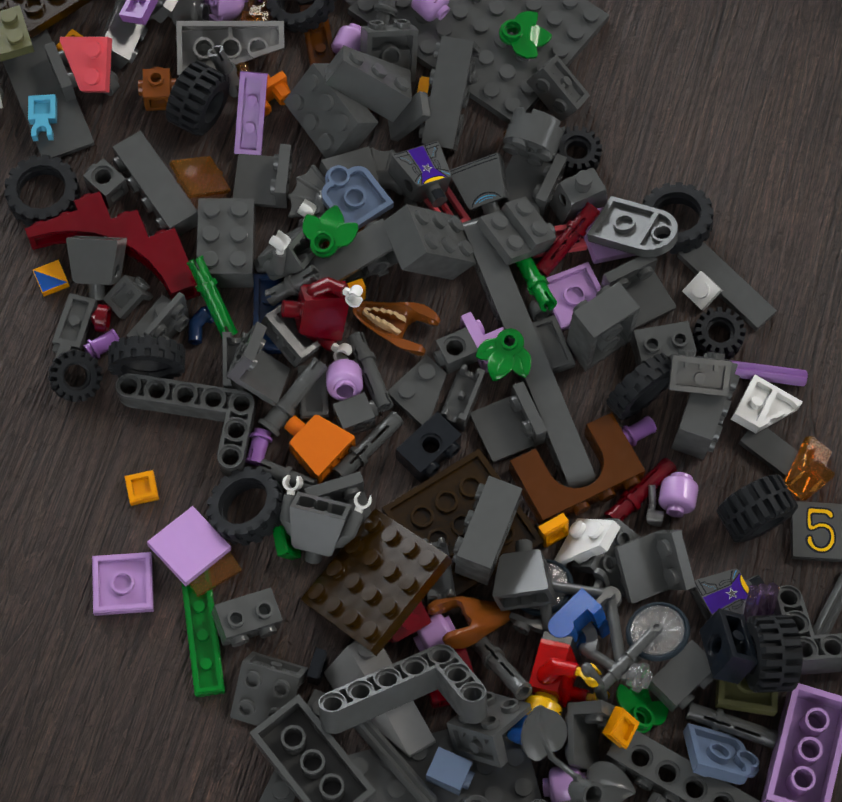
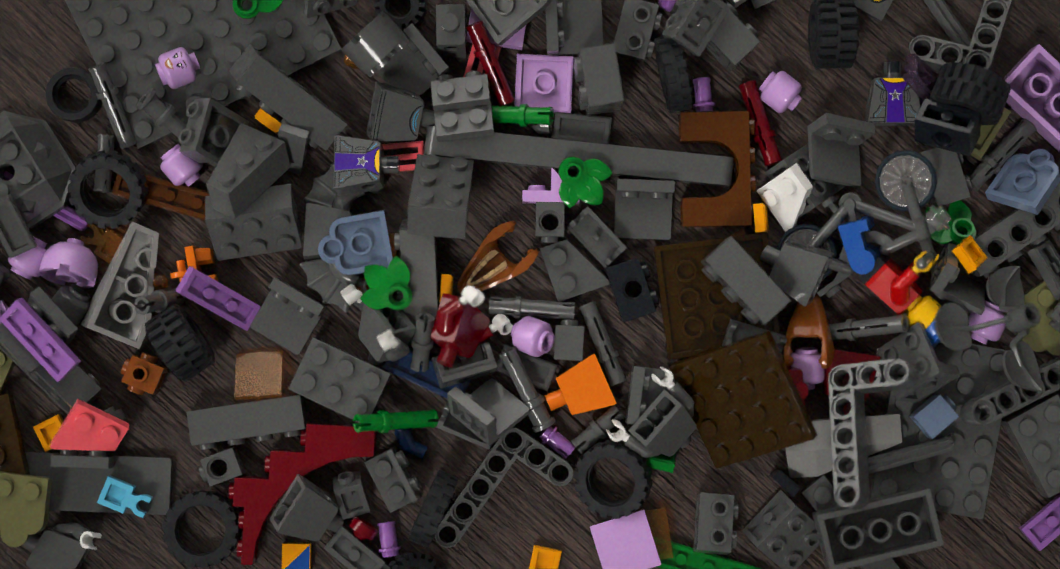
camera: 60 degrees left, 20 degrees up
(653, 516) = (788, 122): flat silver hand -> none

